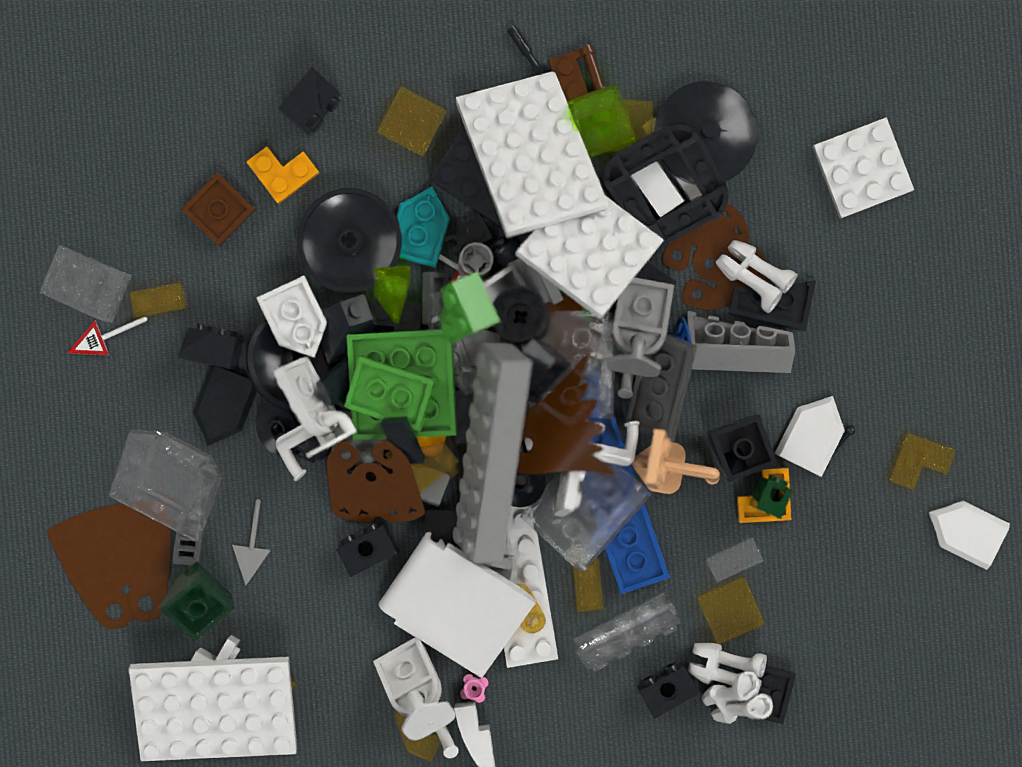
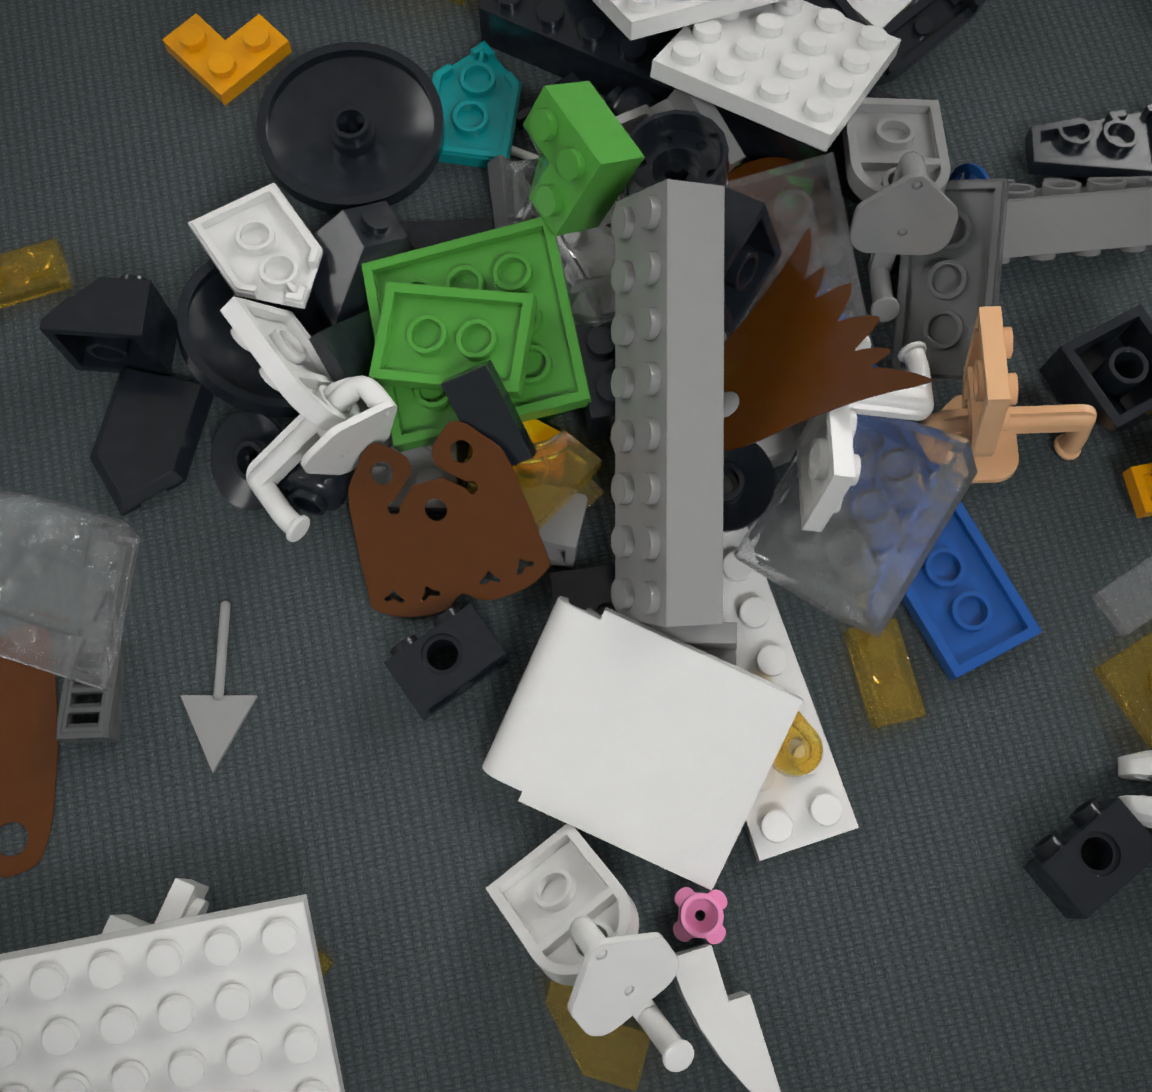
camera: 10 degrees left, 15 degrees down
(196, 601) = (104, 809): clear green slope -> none
(218, 209) = (118, 116): reddish brown plate -> none
(391, 289) = (433, 186): clear neon green slope -> none
(626, 631) = (992, 744): clear slope -> none
(711, 242) = (1002, 85): reddish brown piece -> none
(746, 254) = (1032, 84): white piece -> none

